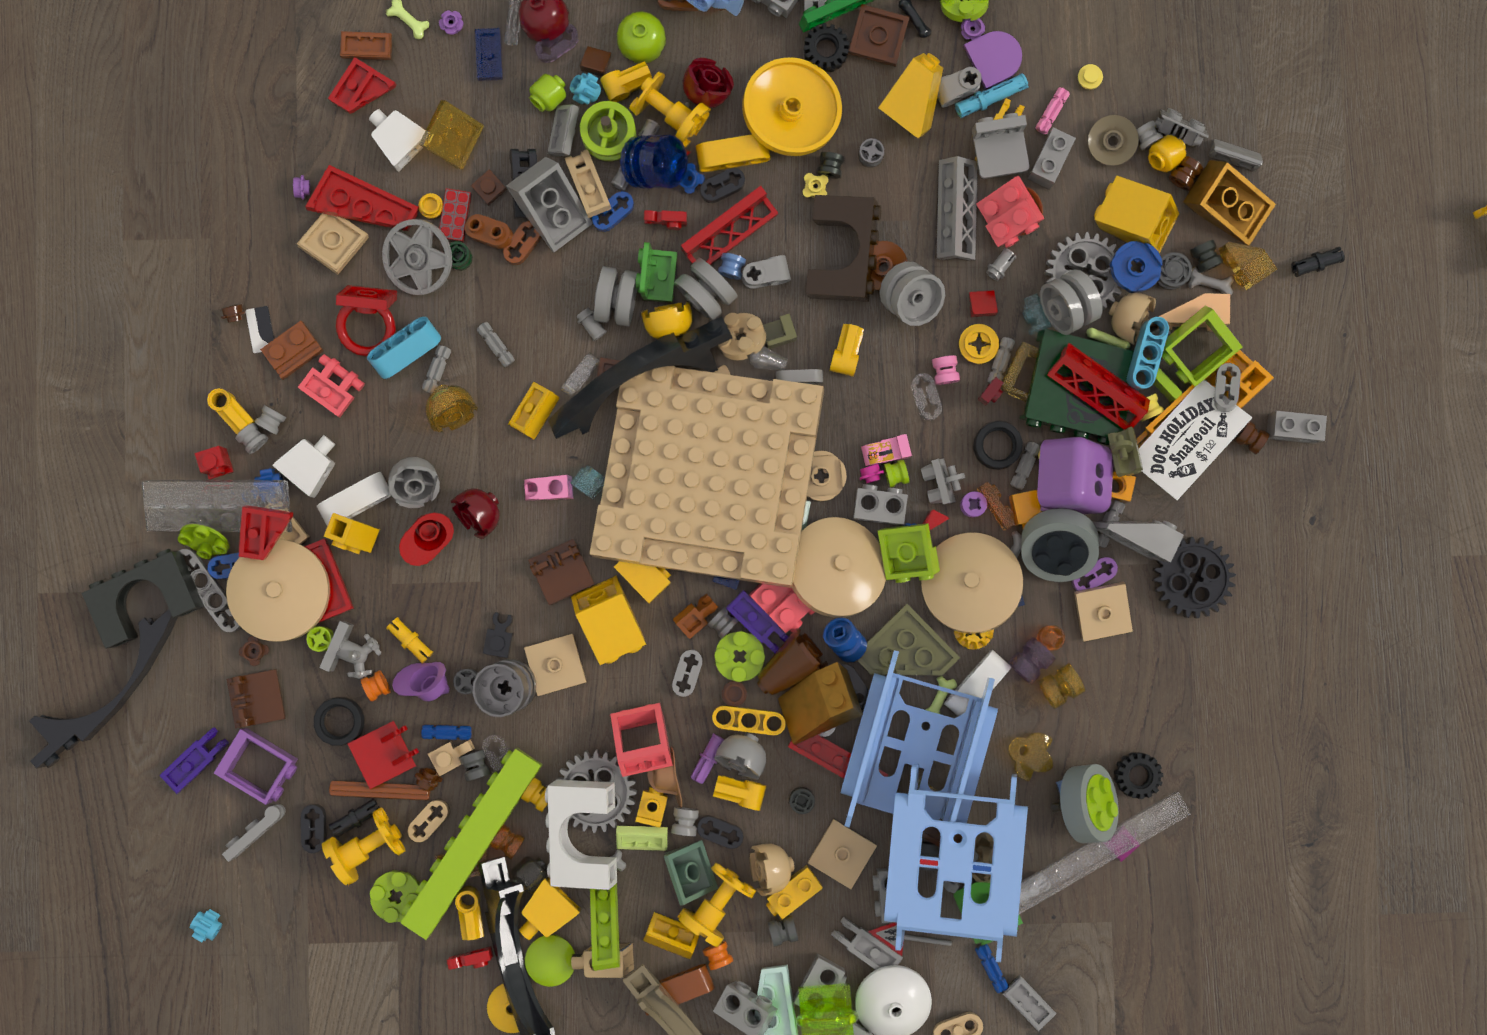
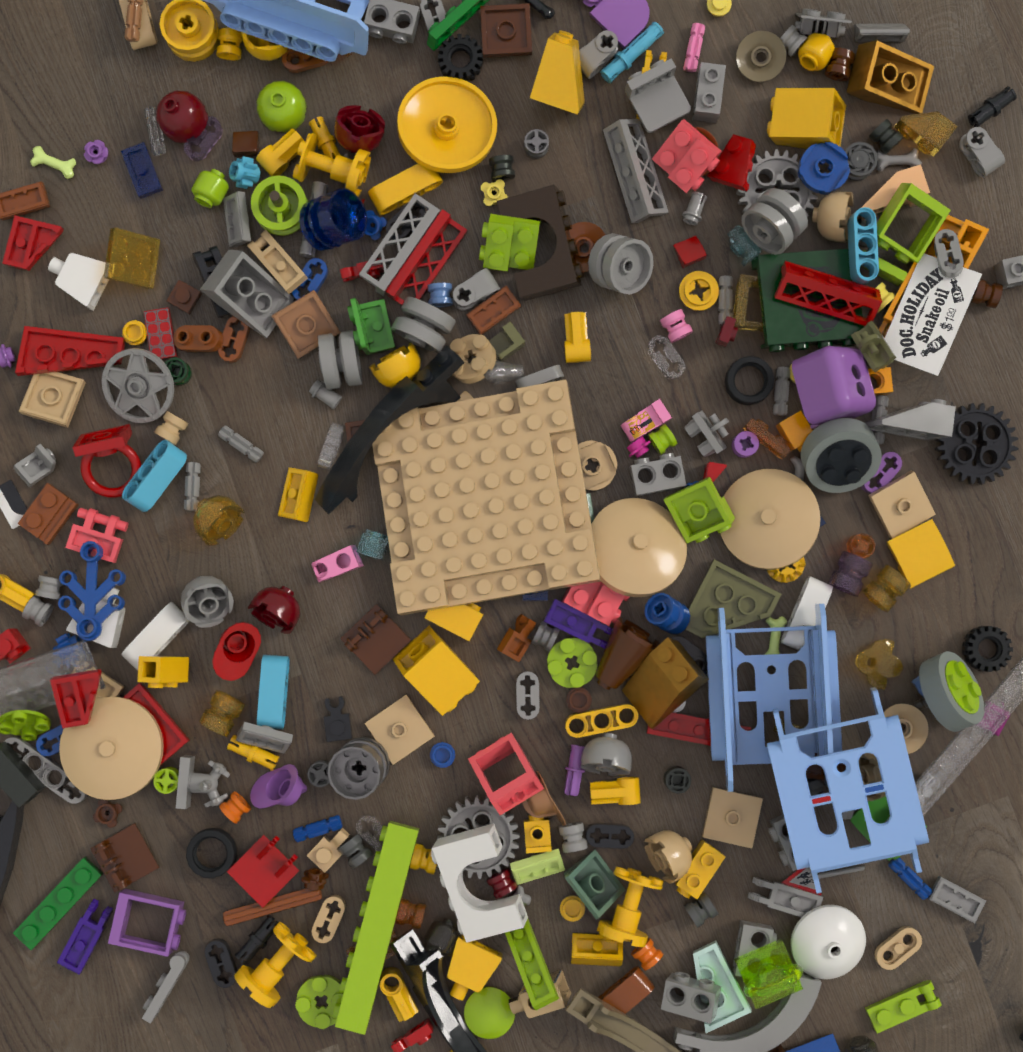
camera: 15 degrees left, 0 degrees up
(179, 720) = (58, 903): none -> green plate
(296, 300) = (36, 465): none -> light grey bracket
(307, 440) = (92, 594): none -> blue plant
(392, 593) = (222, 712): none -> clear yellow wheel
(425, 629) = (264, 737): none -> light grey plate
(433, 308) = (171, 427): none -> tan wheel
(447, 589) = (273, 691): none -> medium azure beam
(587, 702) = (442, 754): none -> blue plate
(593, 249) = (303, 322): none -> medium nougat plate
(603, 842) = (501, 883): none -> dark red wheel
(661, 888) = (572, 908): none -> yellow plate
(672, 83) = (326, 141): none -> yellow pin
(719, 208) = (404, 252): none -> light grey fence
(777, 297) = (493, 310): none -> dark orange plate
(813, 238) = (509, 243): none -> lime plate
(1045, 827) = (915, 725): none -> tan dish
(1053, 234) = (735, 163): none -> red wing
(1106, 664) = (921, 553): none -> yellow slope
(1107, 338) = (818, 245): yellowish green piece -> none
(1293, 304) = (983, 154): none -> light grey piece

